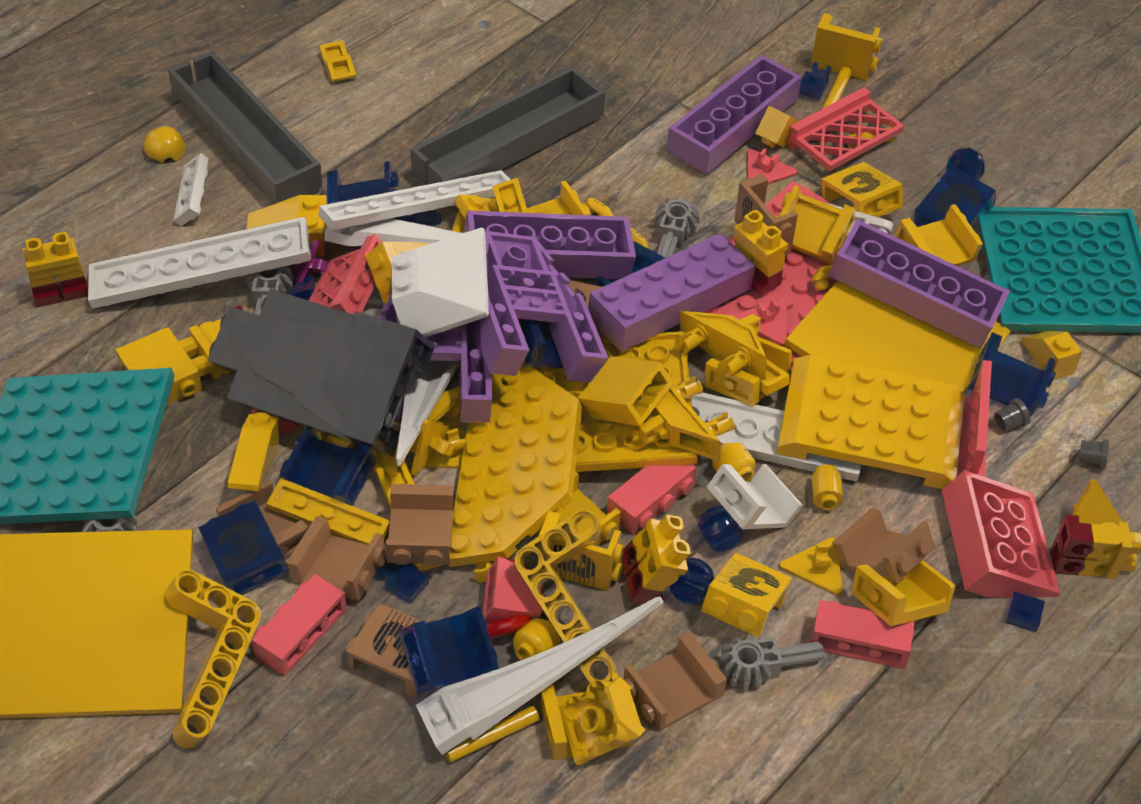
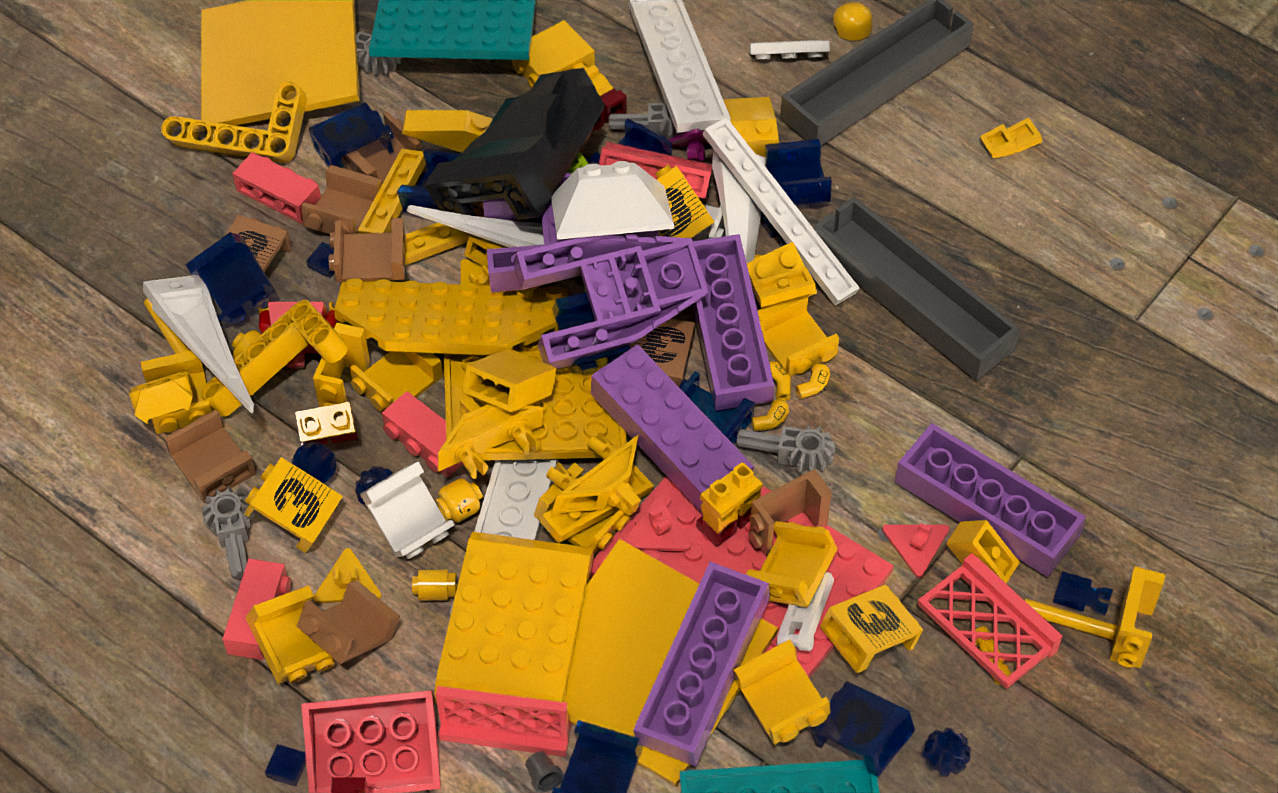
camera: 90 degrees right, 5 degrees up
(431, 440) = (468, 252): yellow piece -> none

